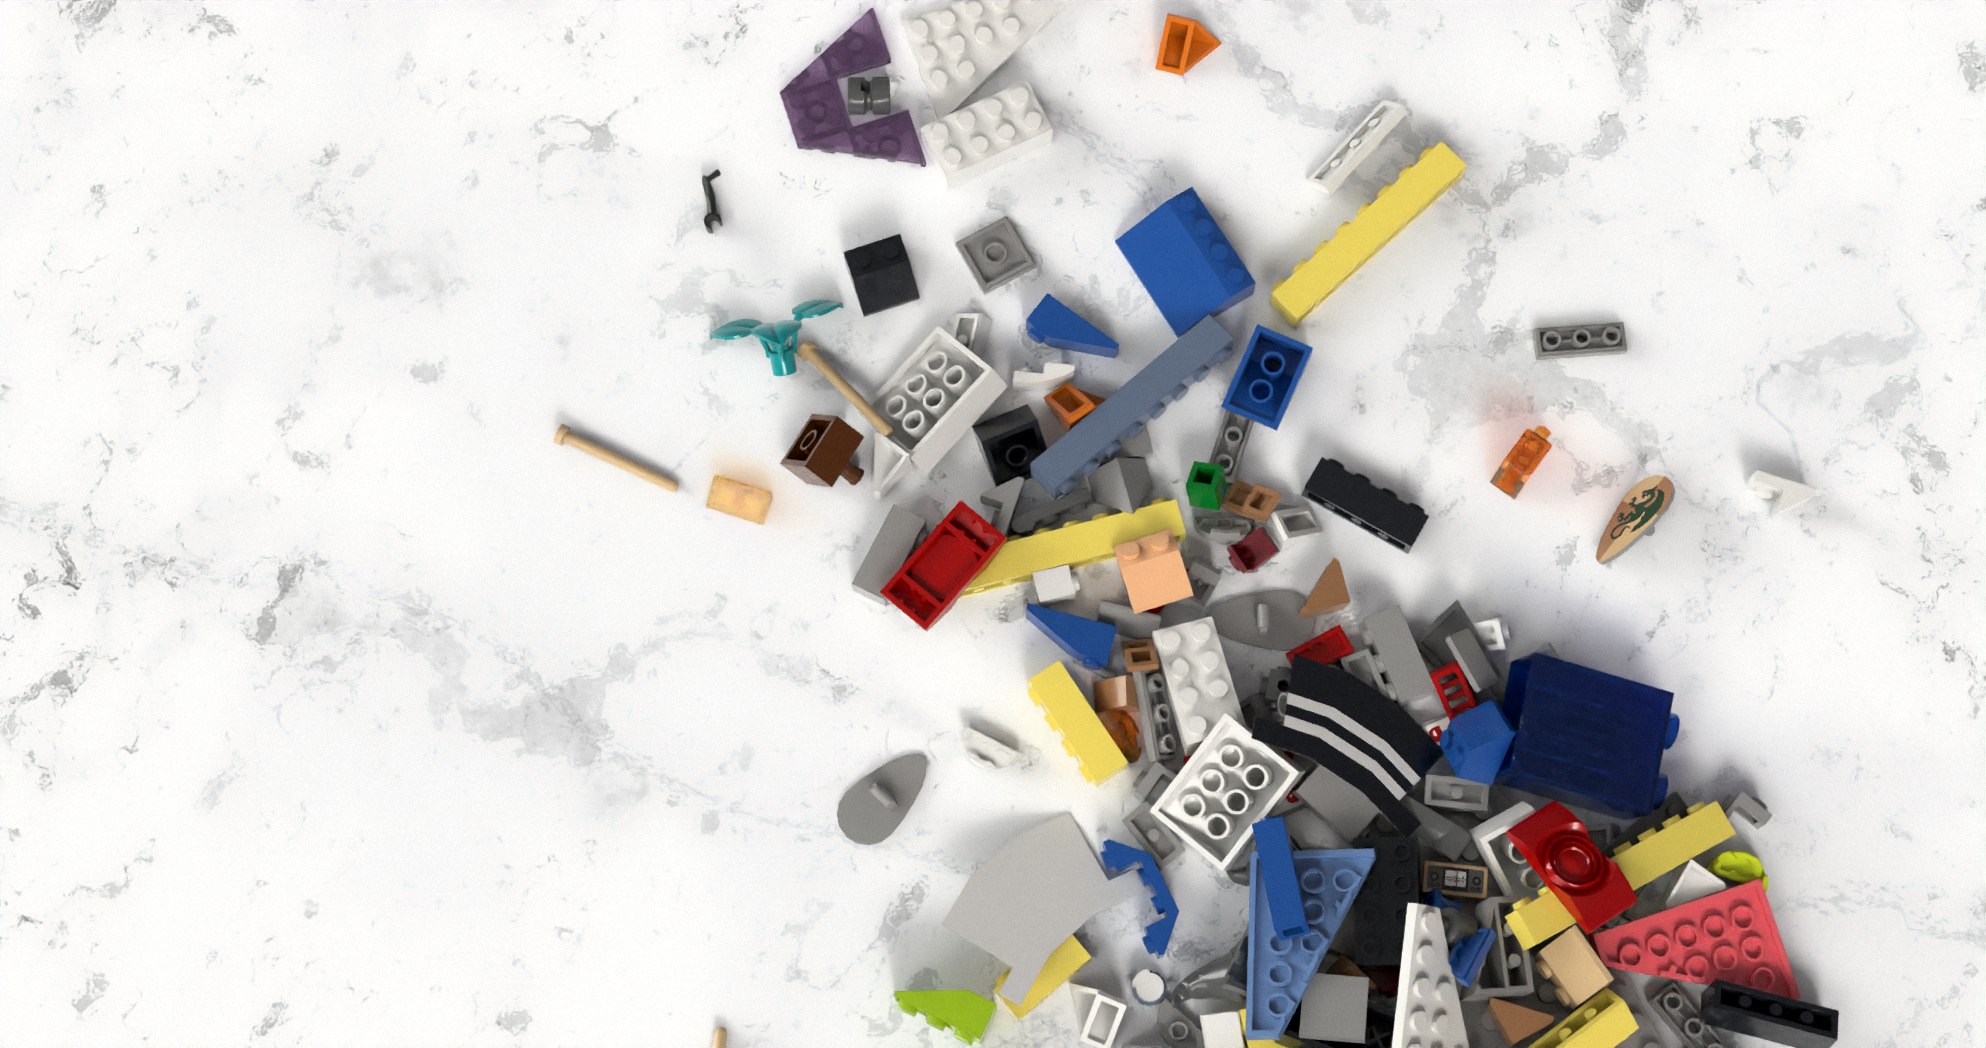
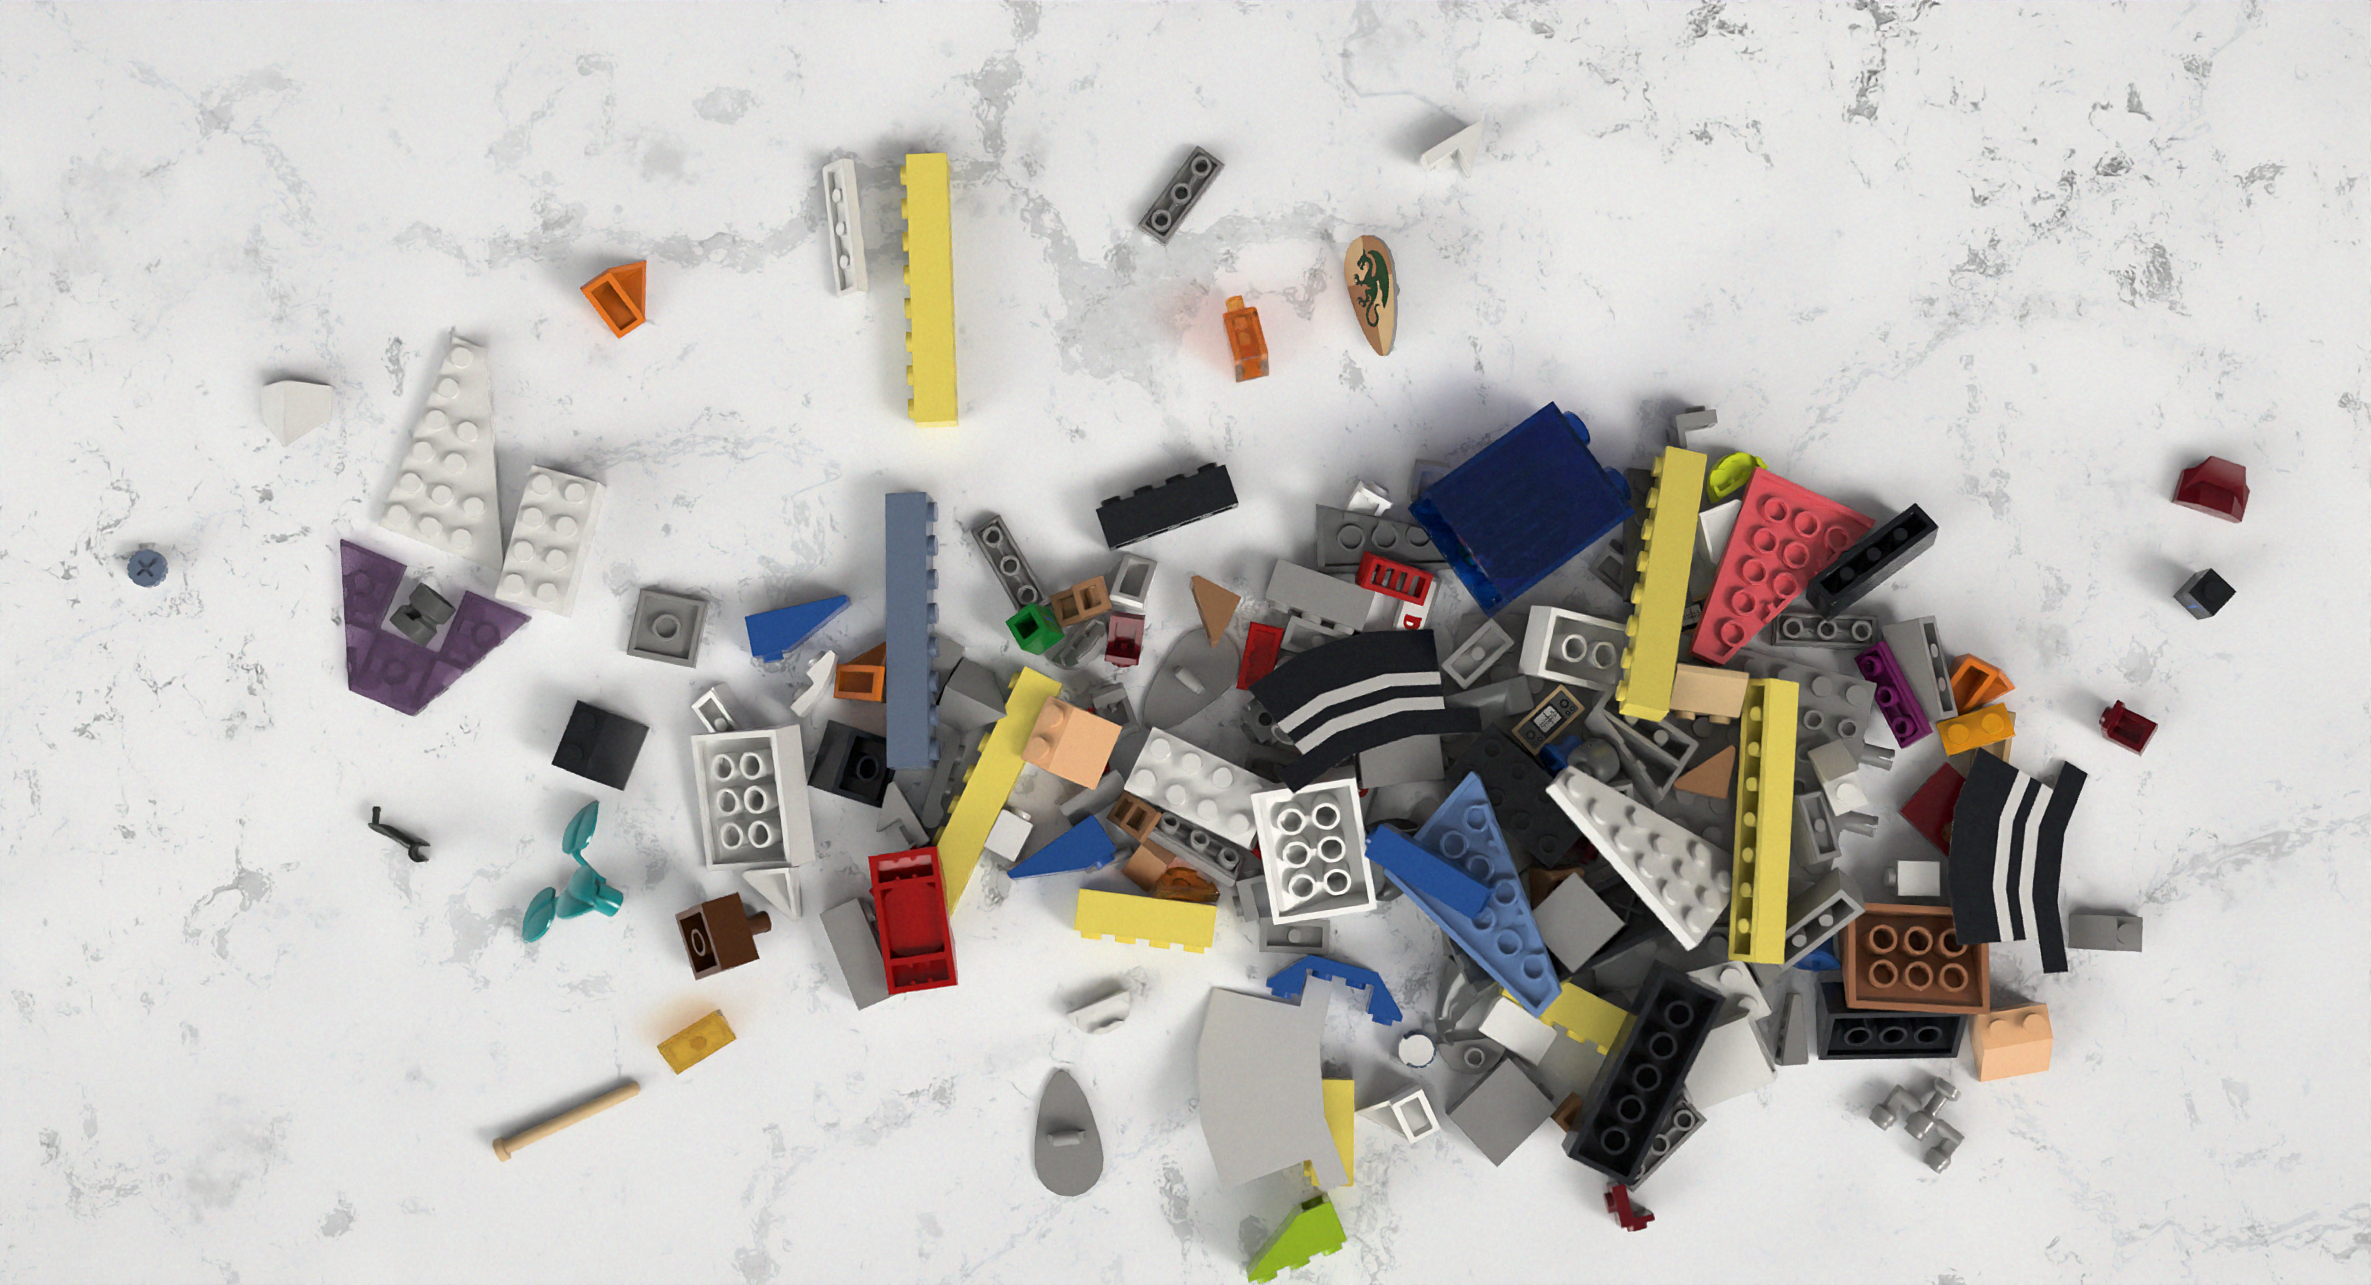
camera: 50 degrees left, 10 degrees up
(809, 352) = (614, 867): tan bar -> none
(1186, 262) = (820, 470): blue slope -> none
(1267, 377) = (986, 494): blue slope -> none
(1469, 955) = (1628, 773): blue plate -> none
(1472, 660) = (1378, 540): light grey slope -> none
(1478, 742) = (1452, 599): blue slope -> none
(1573, 866) = (1627, 621): red slope -> none

